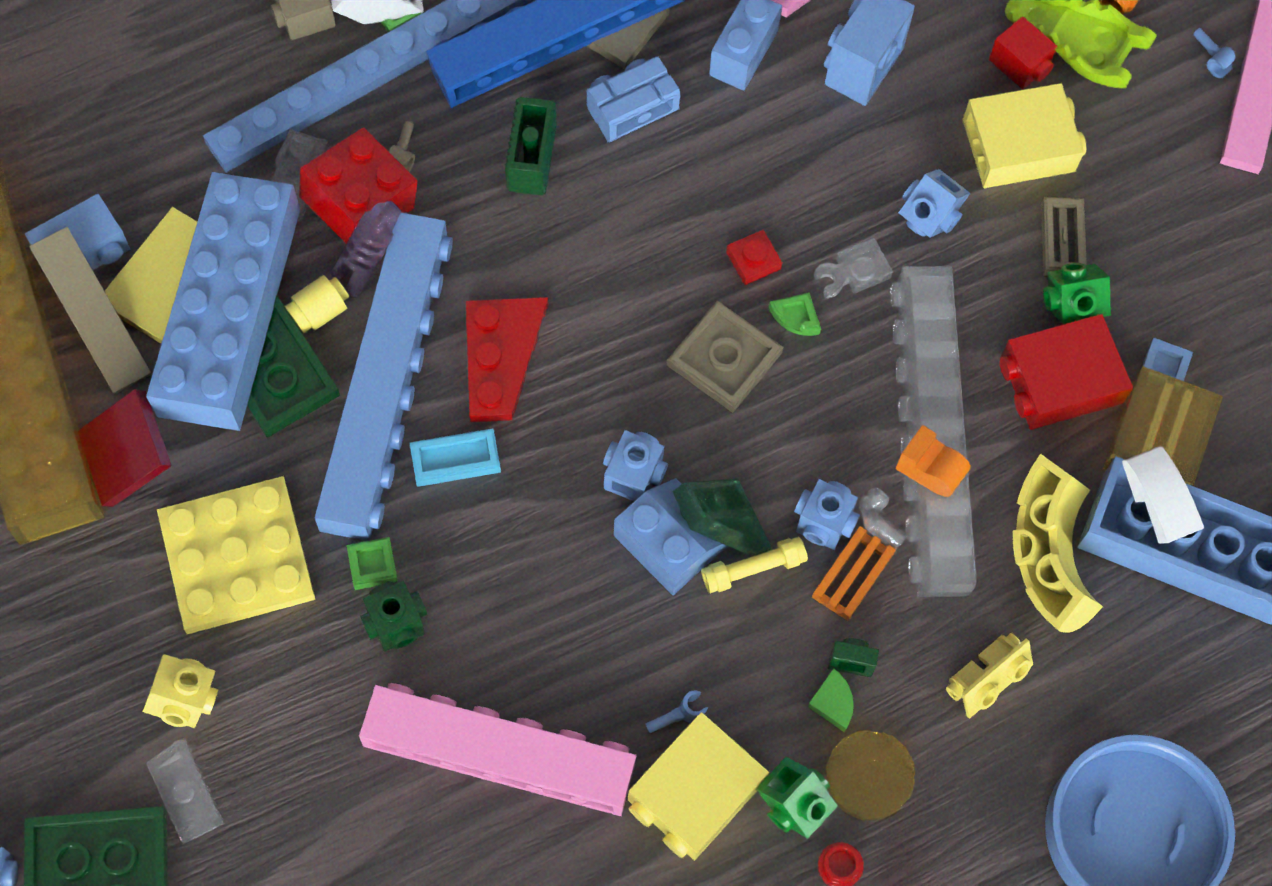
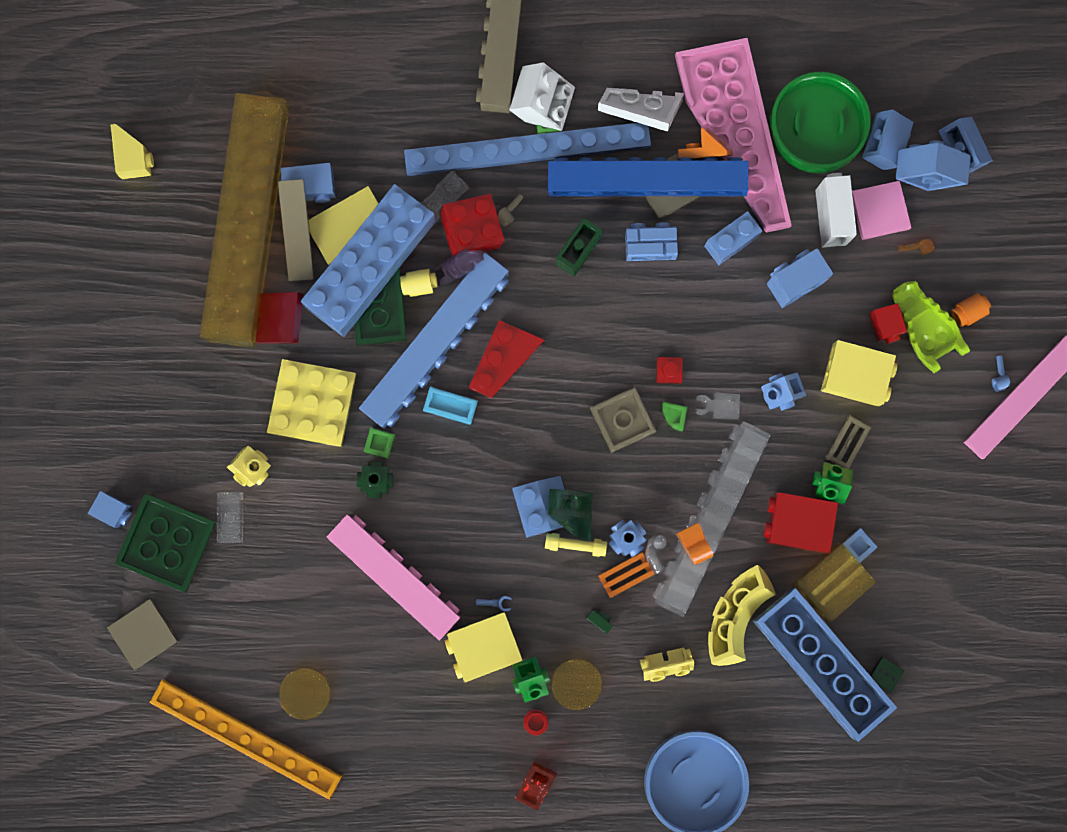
camera: 25 degrees right, 15 degrees up
(634, 465) = (535, 469): medium blue brick -> none
(834, 701) = (578, 637): bright green tile -> none
(1166, 496) = (806, 624): white slope -> none

